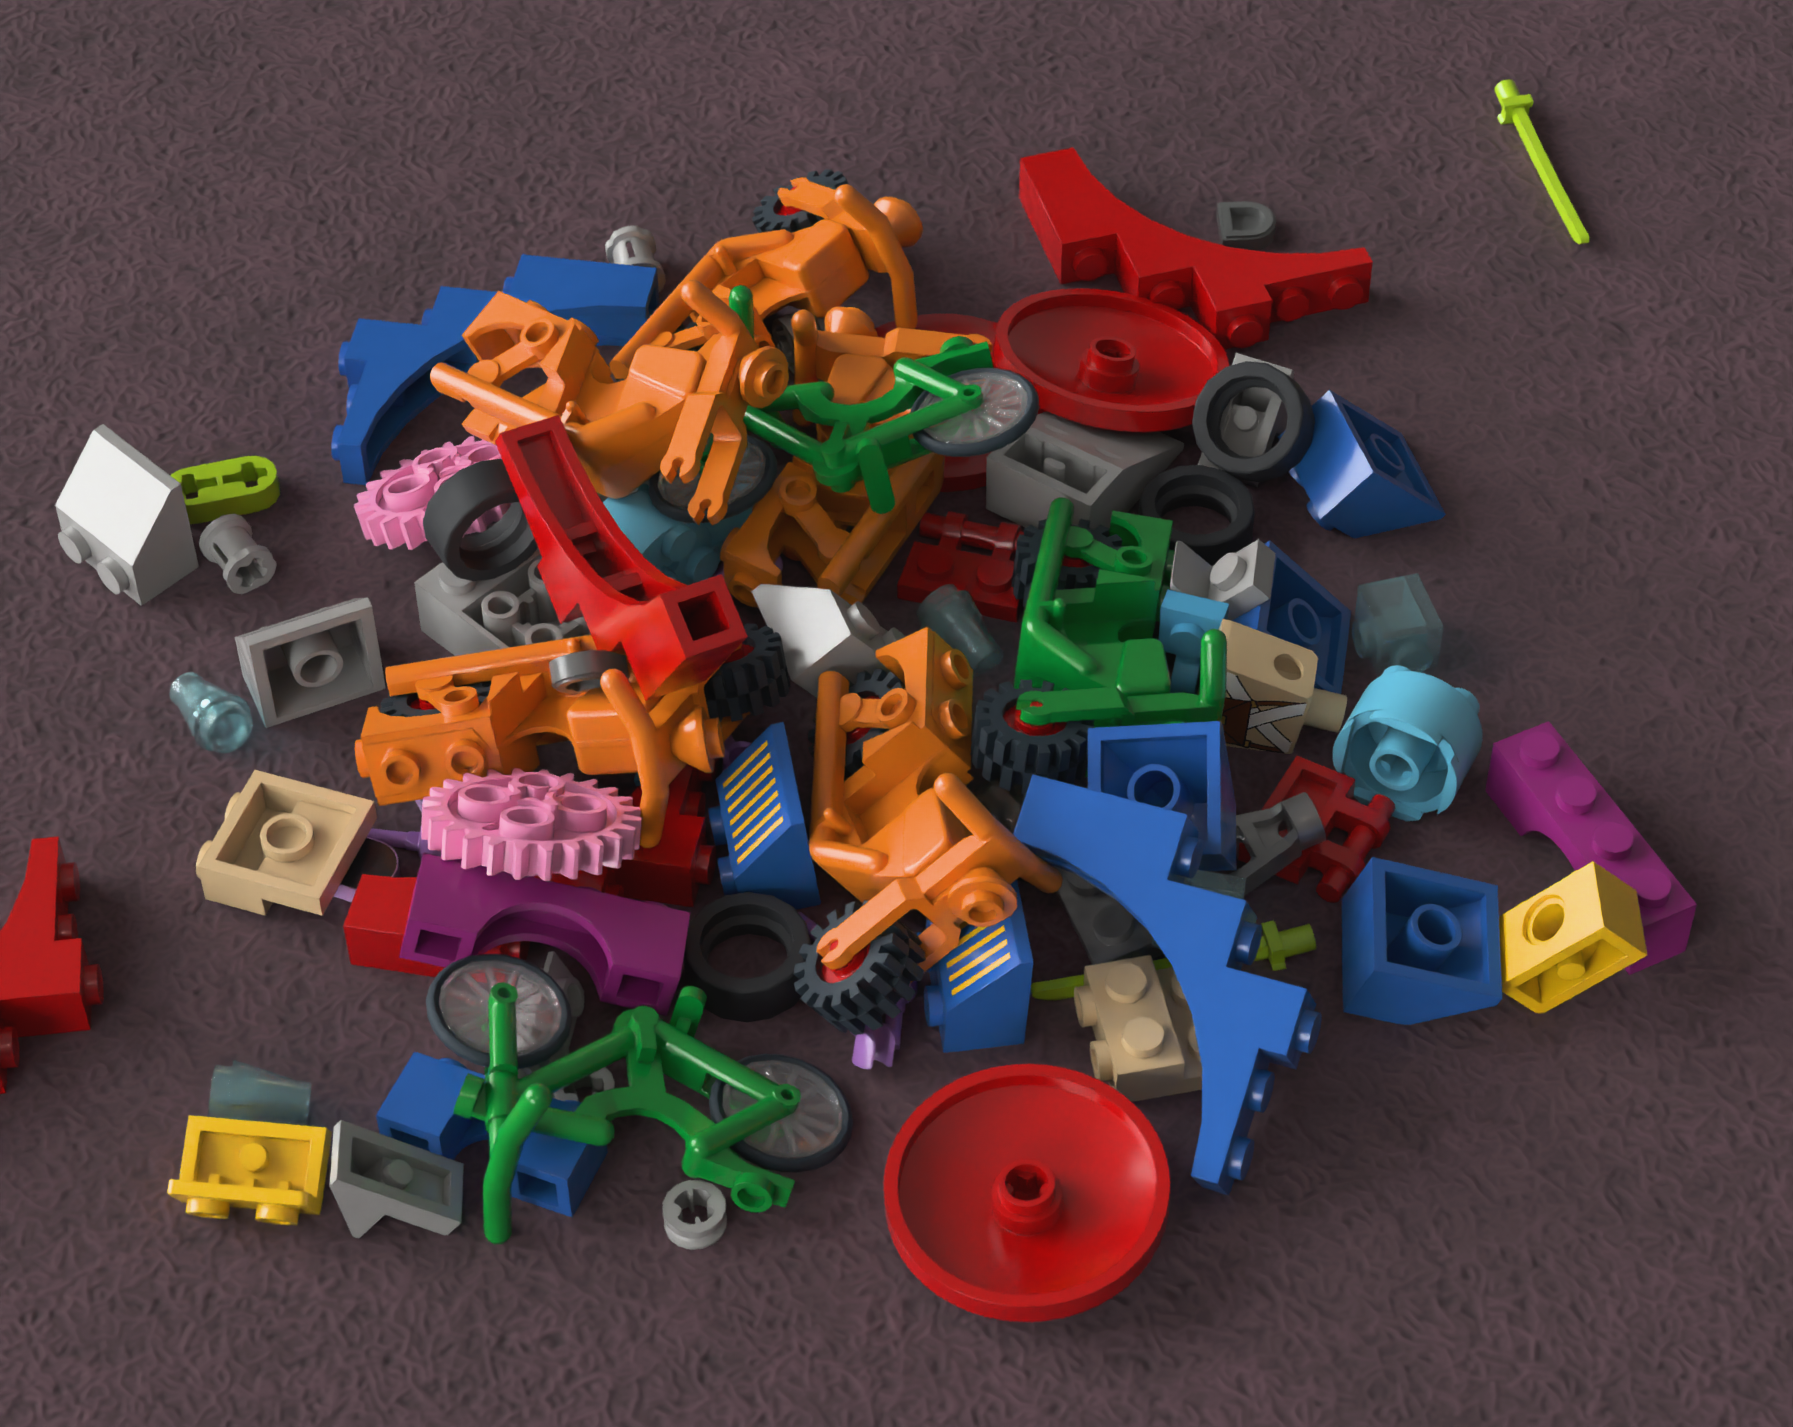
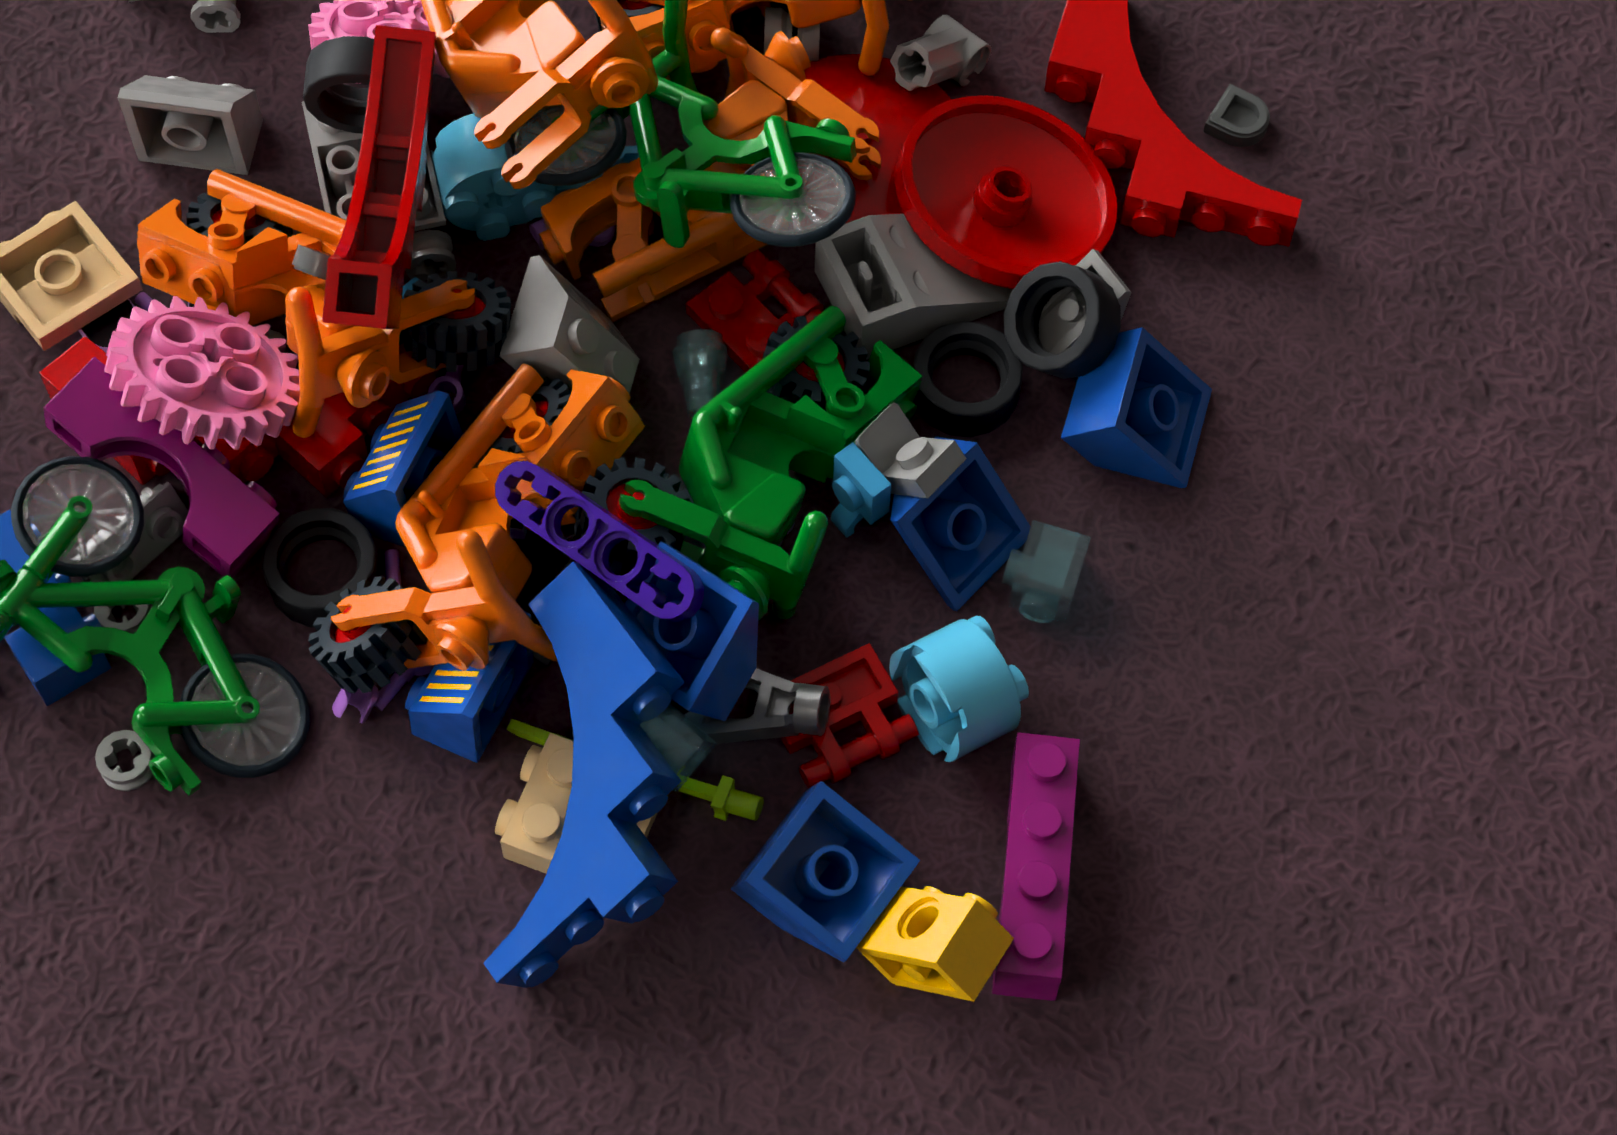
camera: 30 degrees right, 15 degrees up
(214, 716) = (99, 130): clear light blue cone -> none
(961, 287) = (941, 54): none -> light grey piece
(1027, 1192) = (356, 898): red dish -> none
(1038, 739) = (596, 544): none -> dark purple beam
(1272, 692) = (879, 572): tan torso -> none
(1516, 110) = (1568, 127): lime sword -> none

